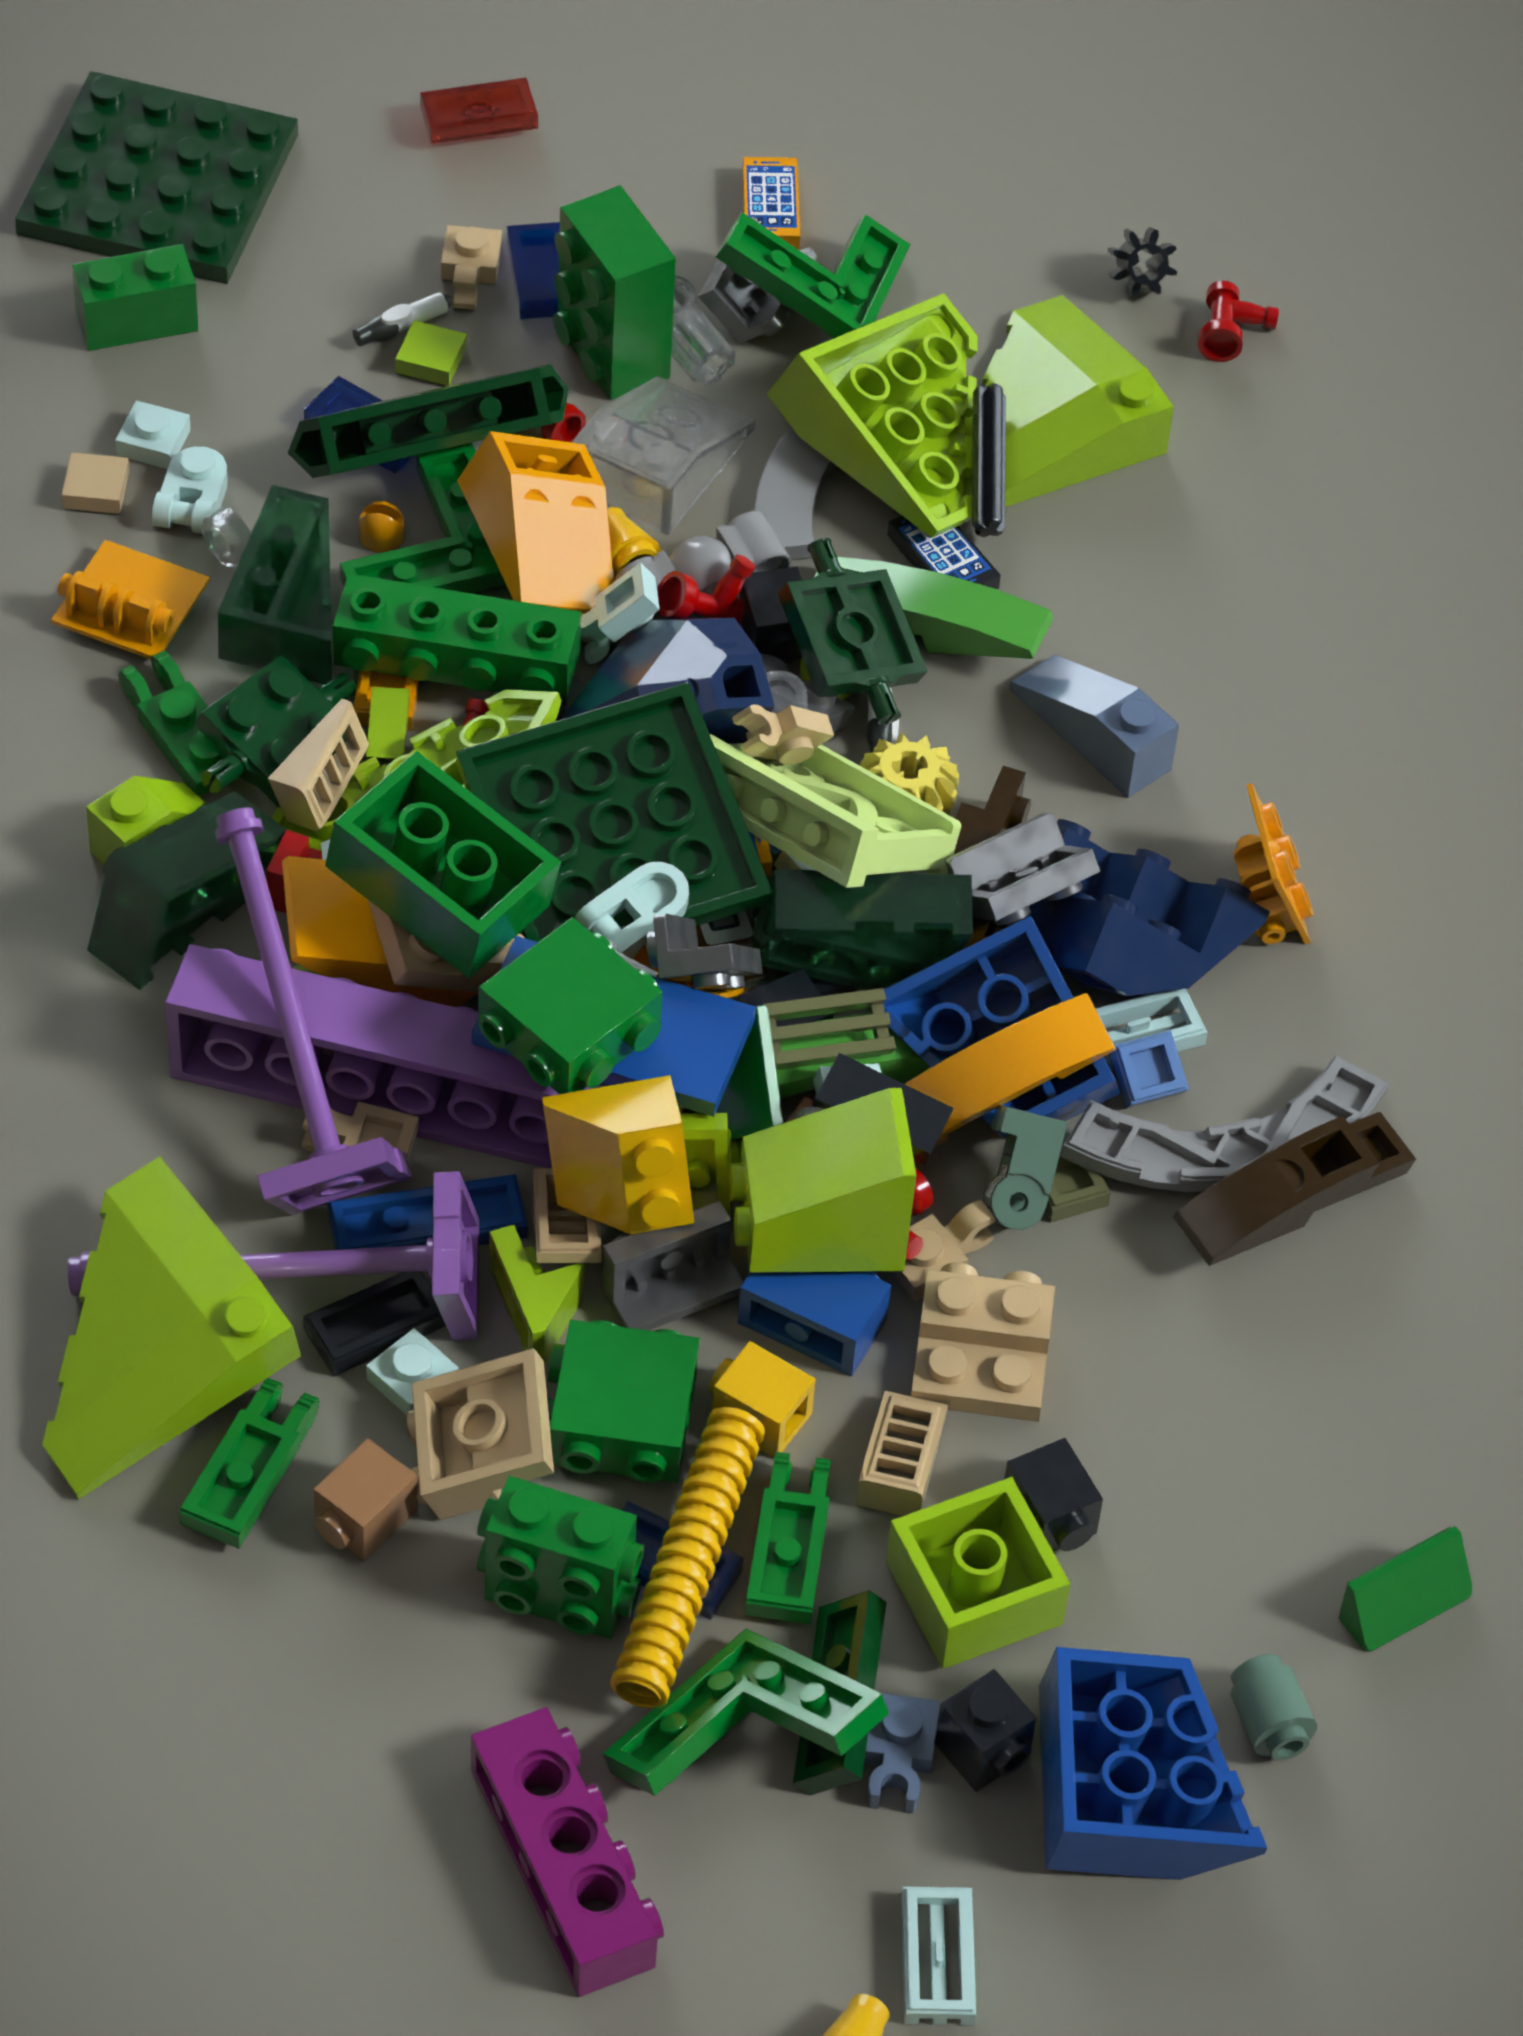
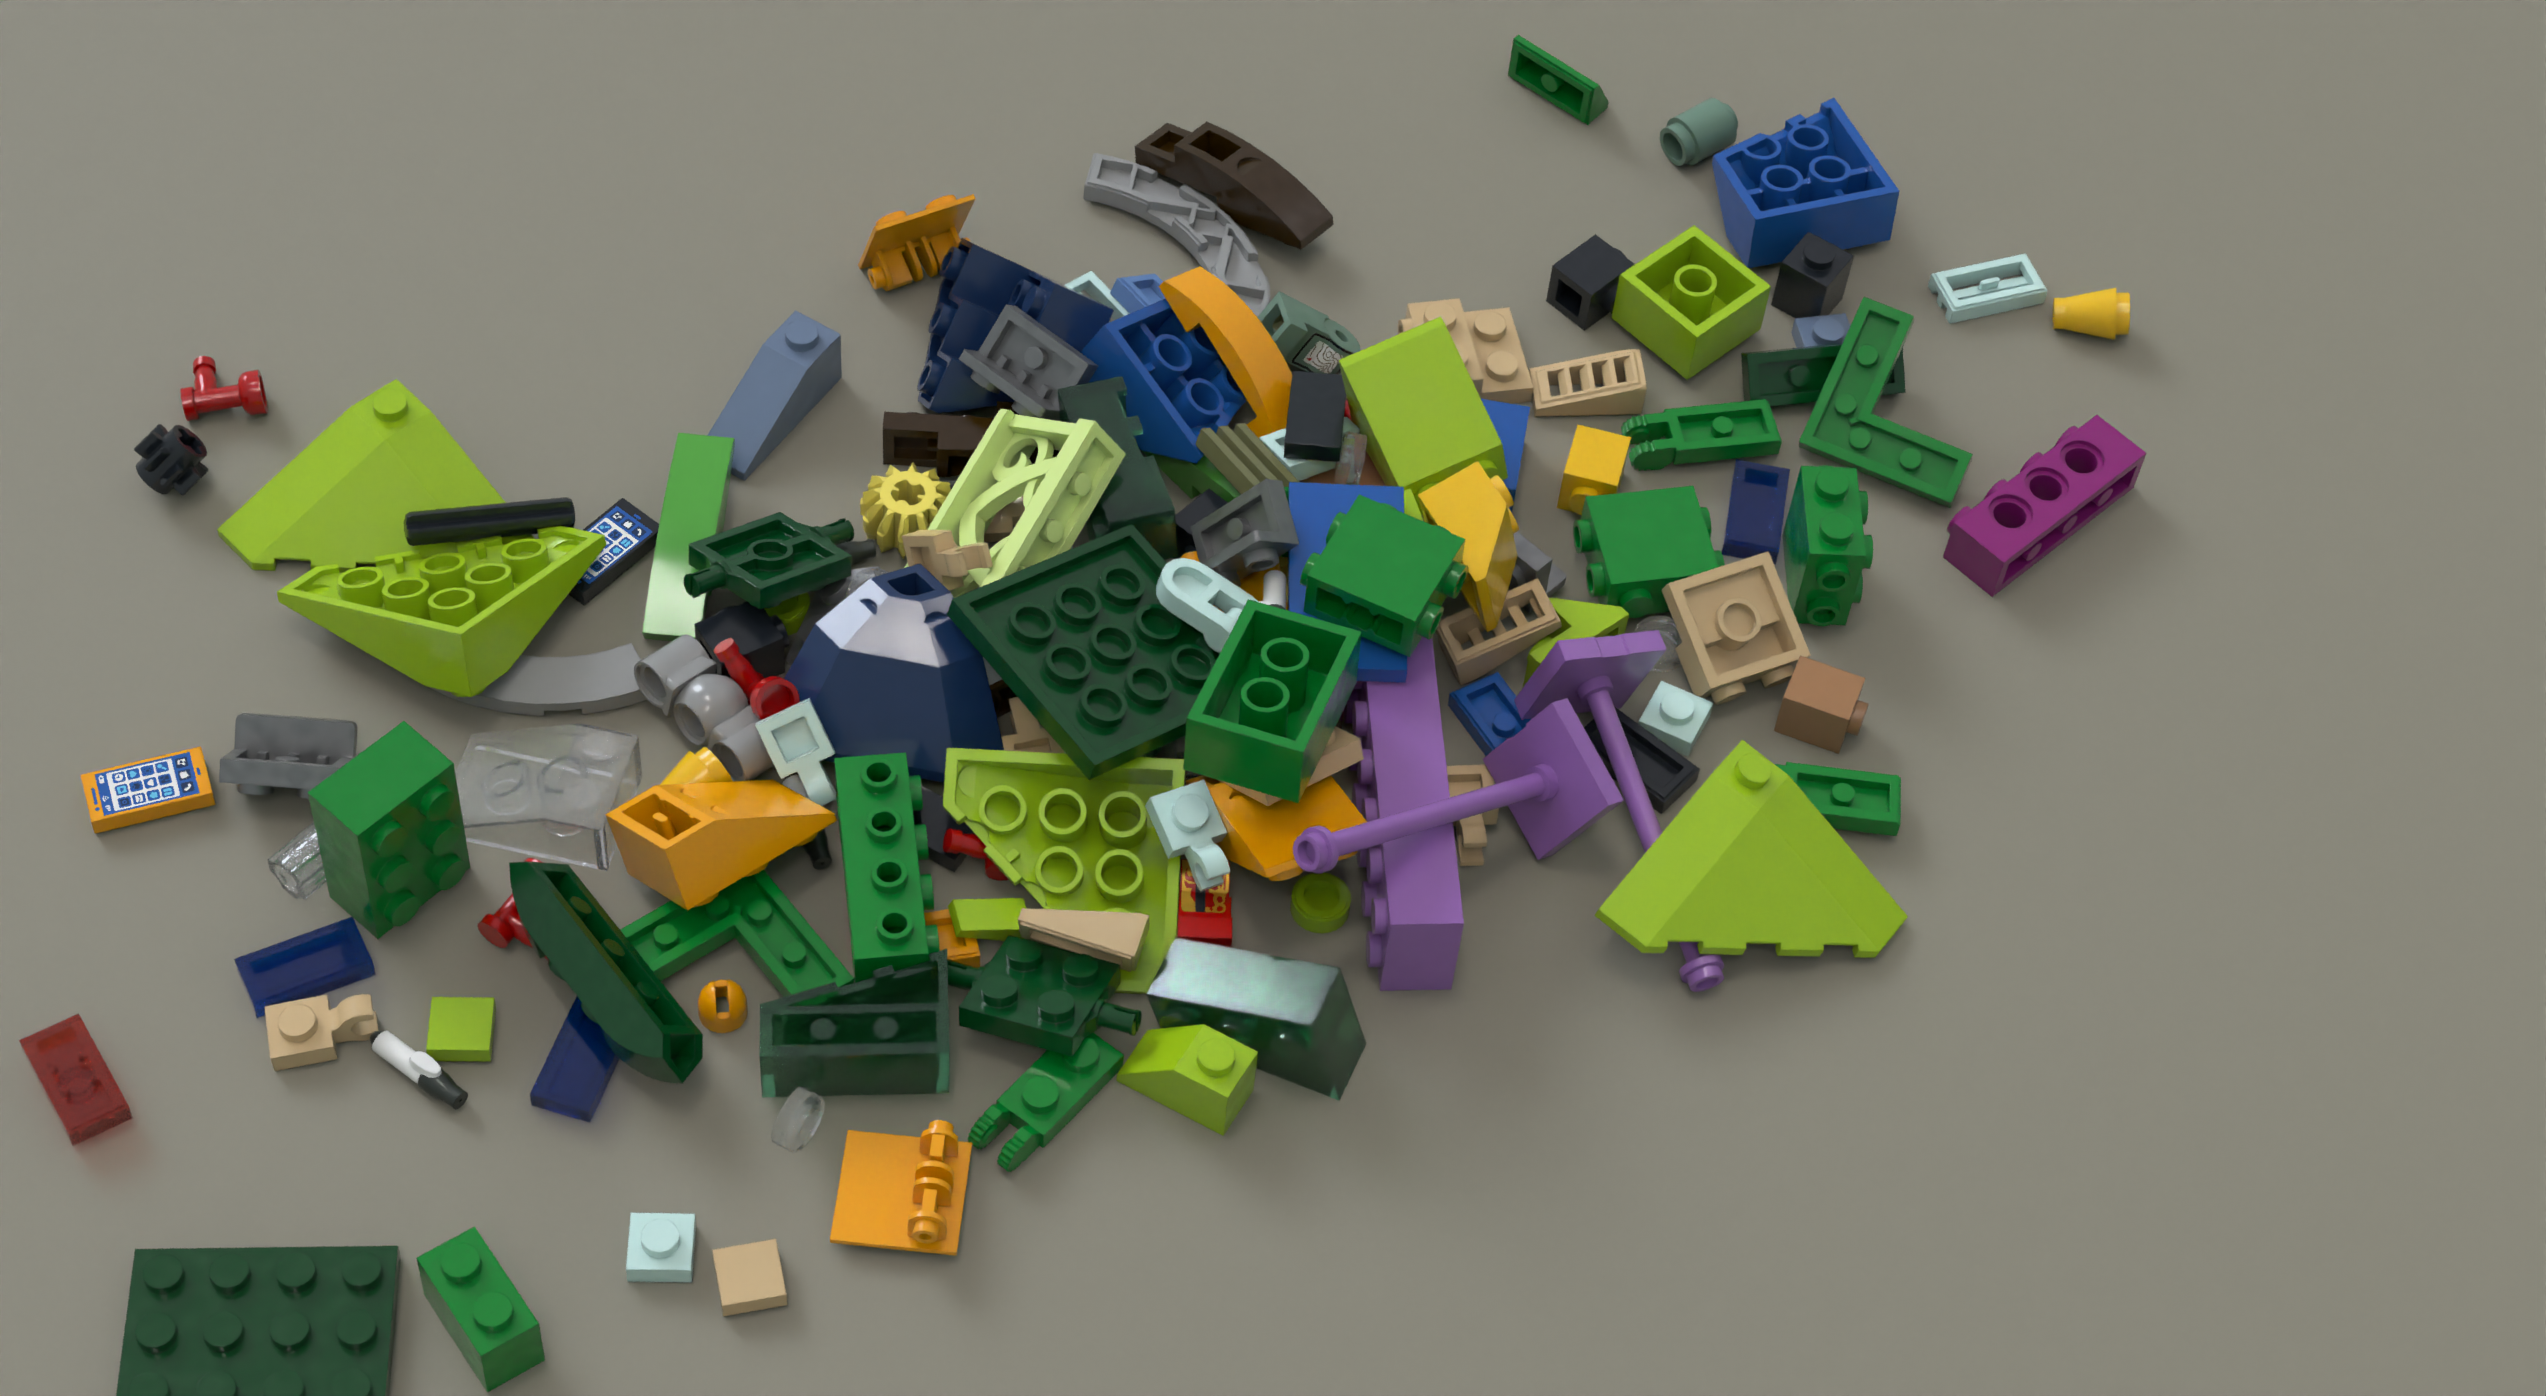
camera: 110 degrees left, 0 degrees up
(191, 489) = (709, 1189): light aqua plate -> none
(687, 1558) = (1762, 471): yellow piece -> none
(829, 299) = (304, 680): green plate -> none

